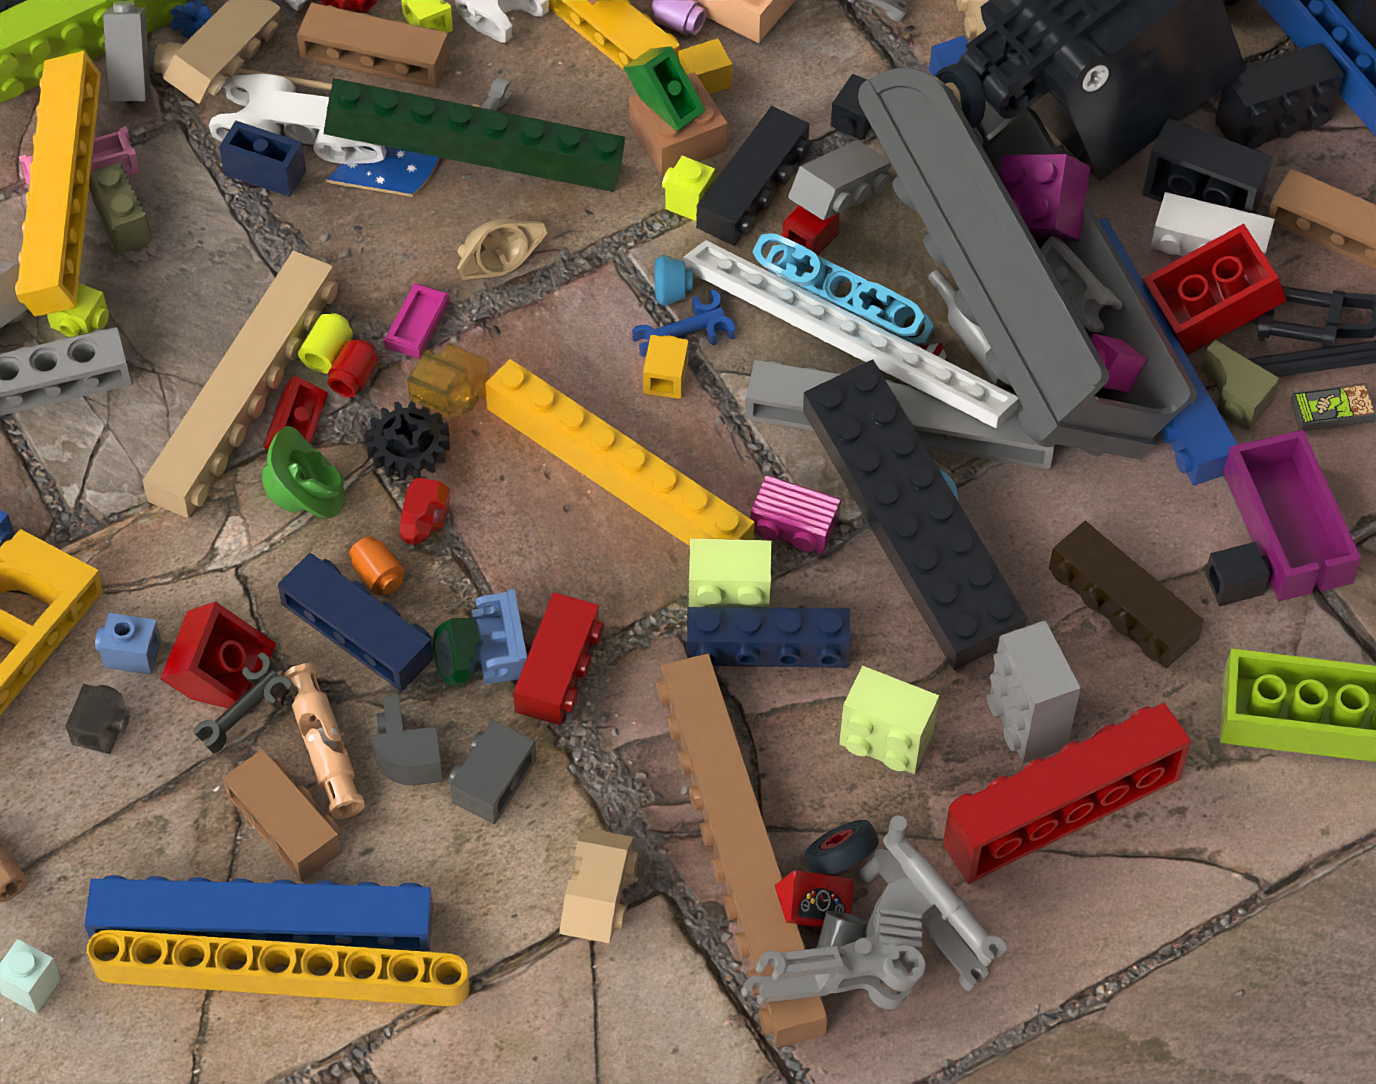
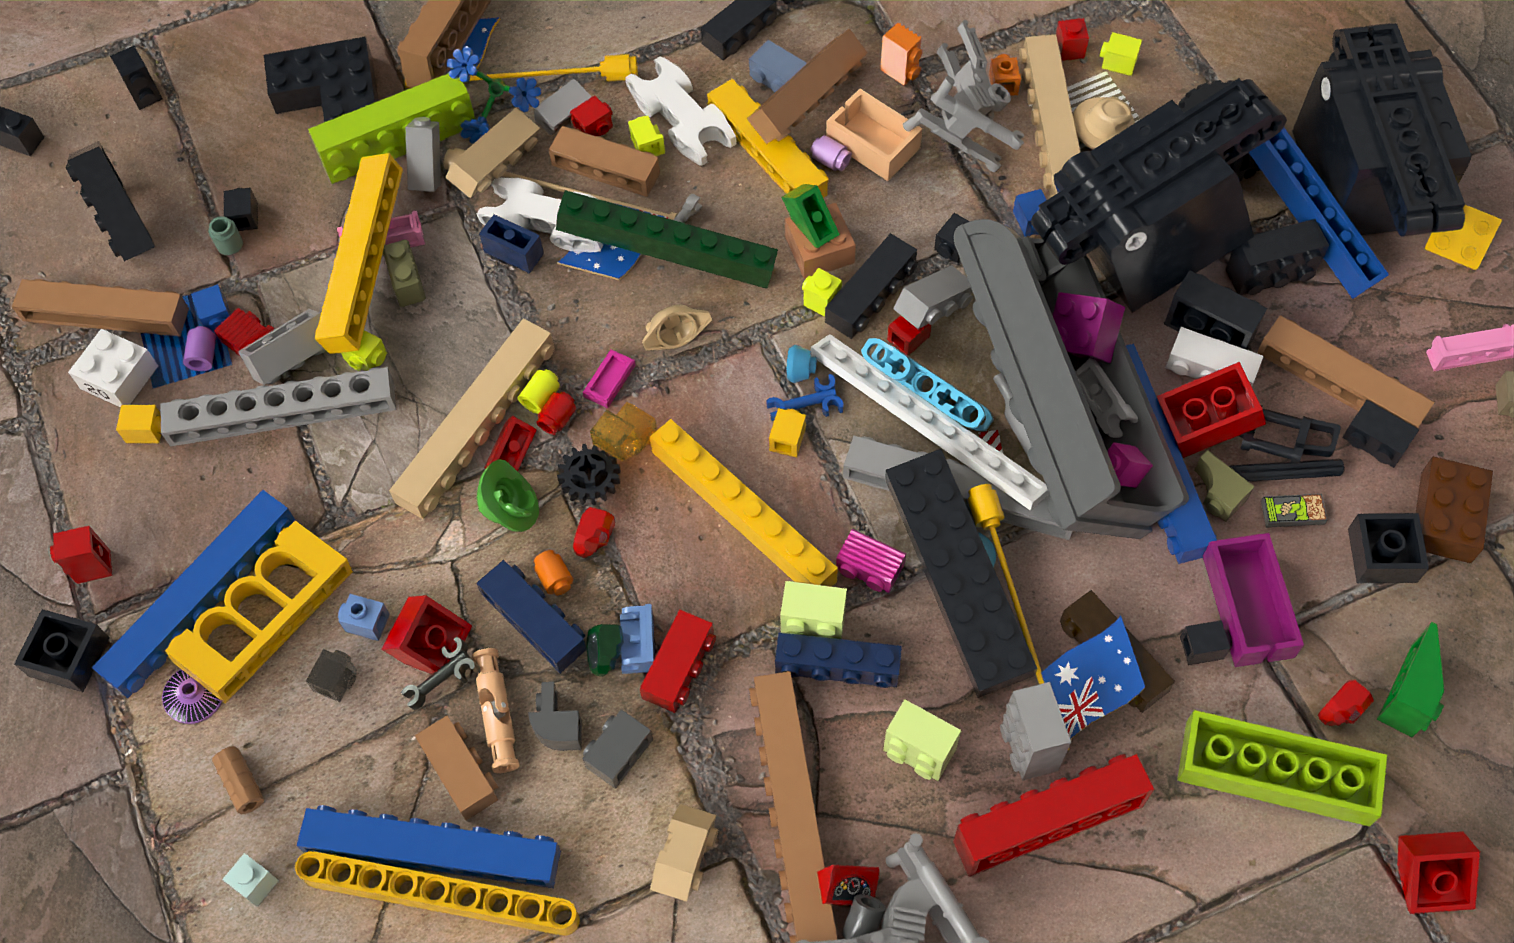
camera: 10 degrees right, 5 degrees up
(709, 63) = (847, 196): yellow brick -> none
(842, 847) = (873, 842): black bush -> none
(966, 89) = (1035, 241): black bush -> none
(1097, 624) = (1091, 676): none -> flag

